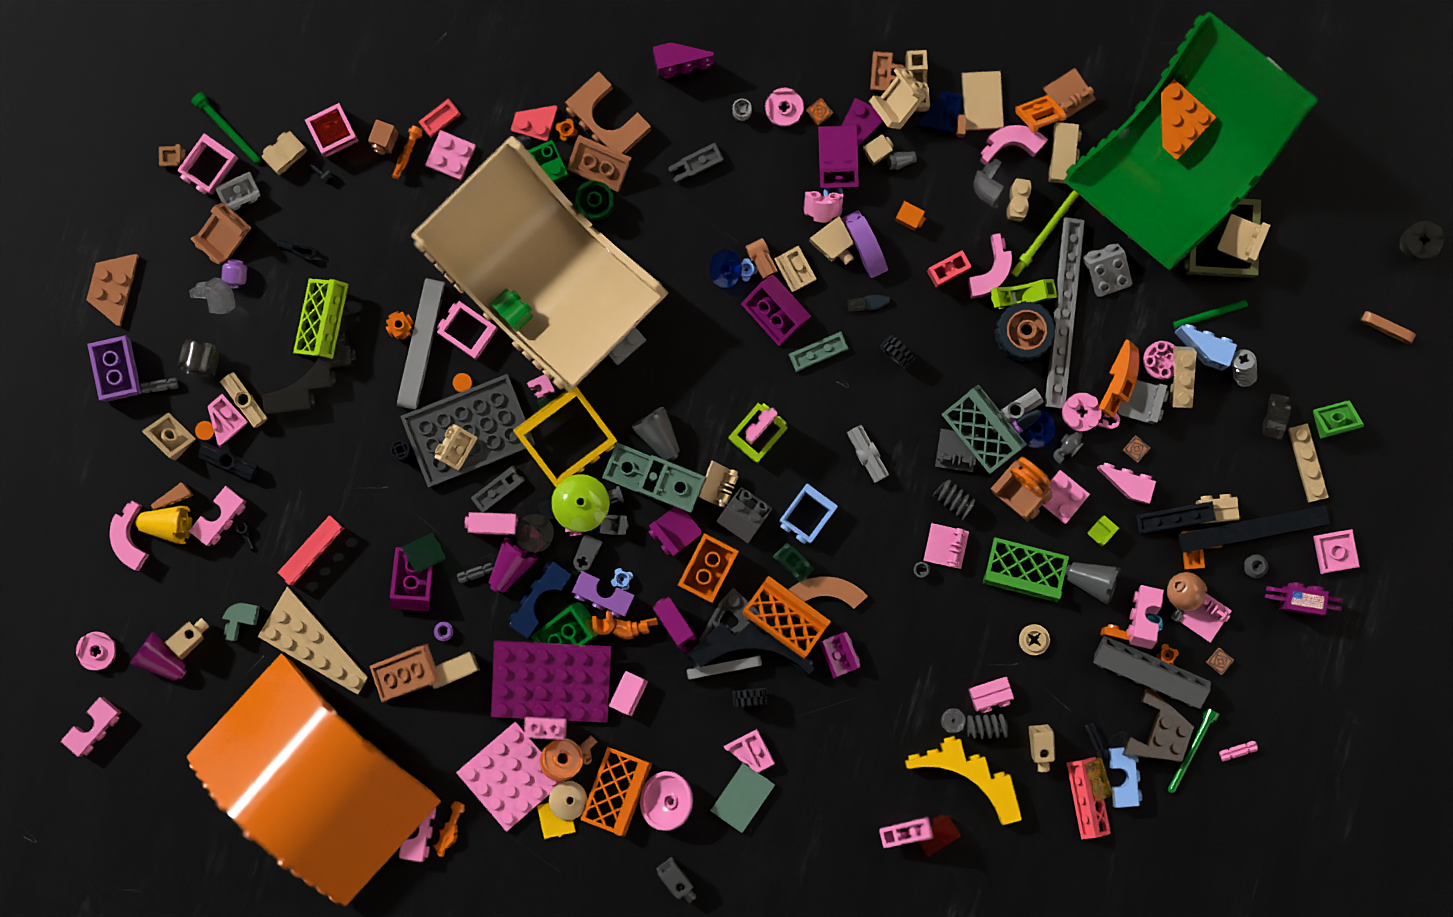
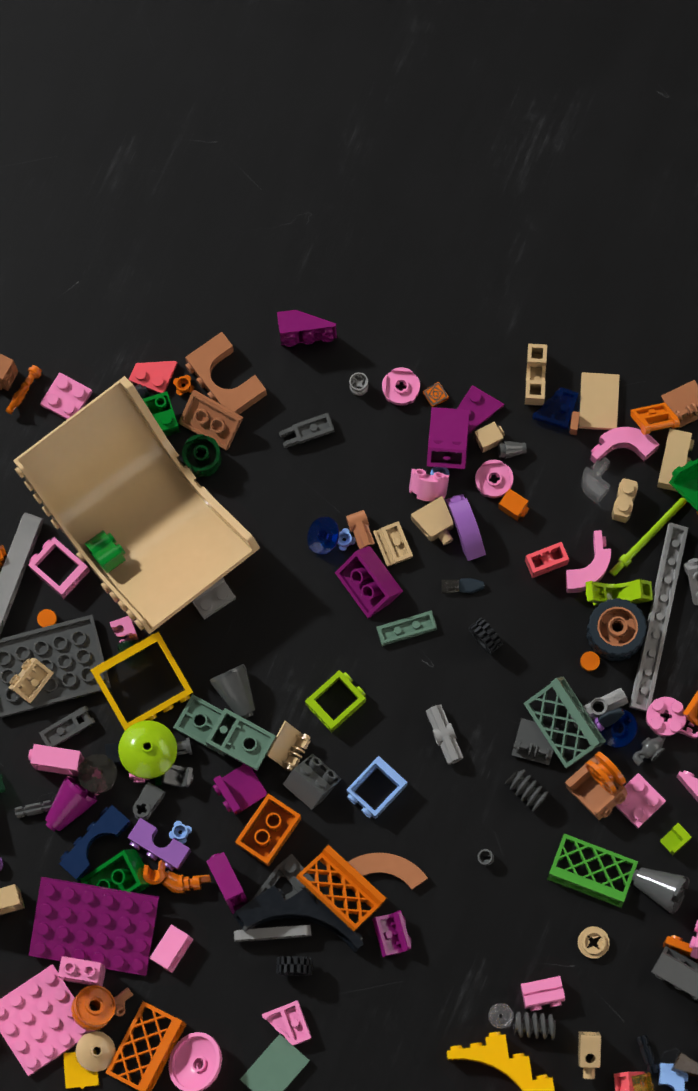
camera: 15 degrees right, 10 degrees down
(439, 118) = (60, 361): coral tile -> none
(765, 419) = (332, 695): bright pink plate -> none
(794, 562) = (356, 835): clear green brick -> none
(881, 71) = (501, 363): nougat hinge -> none
(893, 183) = (501, 471): none -> bright pink plate
(899, 99) = (515, 389): tan panel -> none
(946, 546) = (513, 836): bright pink hinge -> none
(1001, 364) = (590, 661): none -> orange tile

